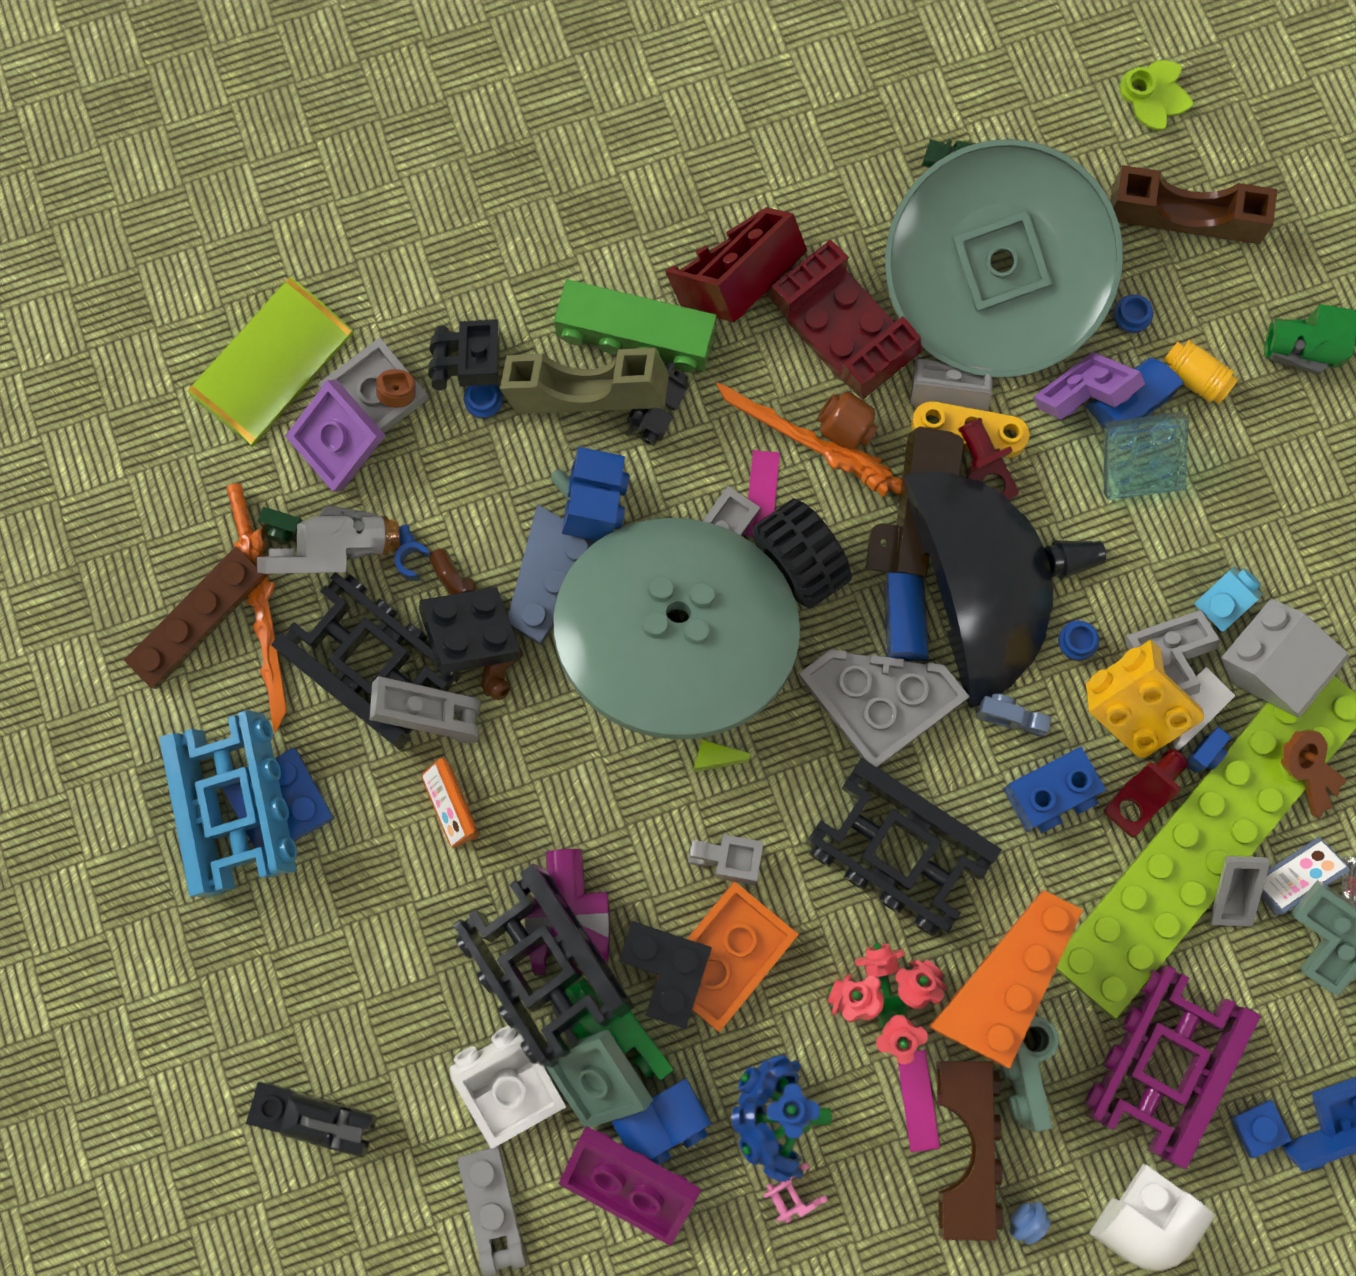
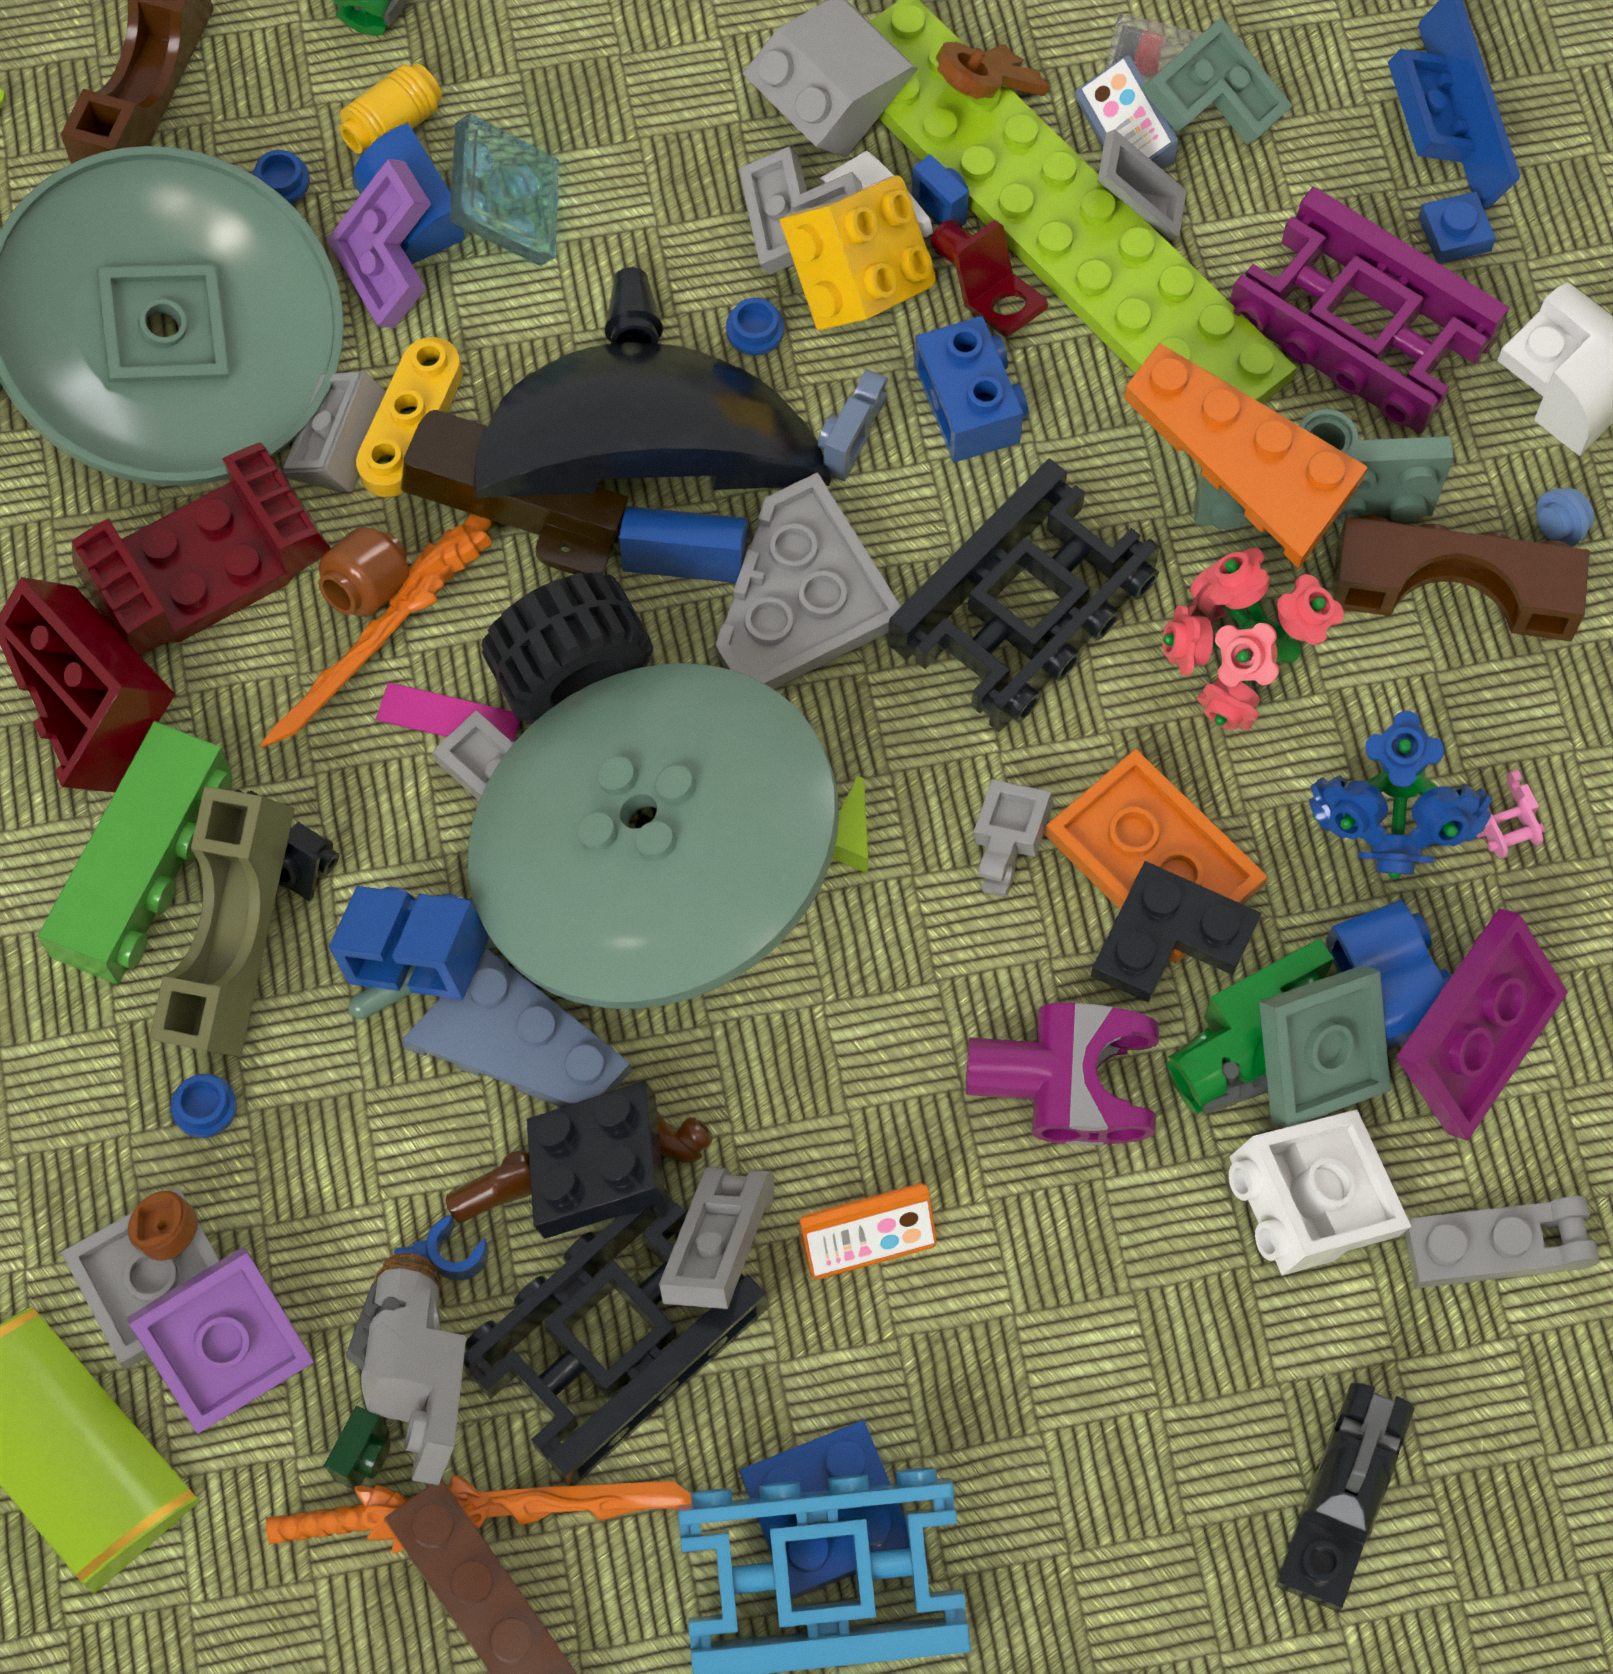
camera: 85 degrees left, 10 degrees down
(477, 354) = (131, 1095): black plate -> none
(570, 945) = (1124, 1044): black fence -> none
(919, 1104) = (1389, 639): dark pink sticker -> none
(986, 458) = (458, 391): dark red bracket -> none
(1230, 597) = (728, 131): medium azure bracket -> none

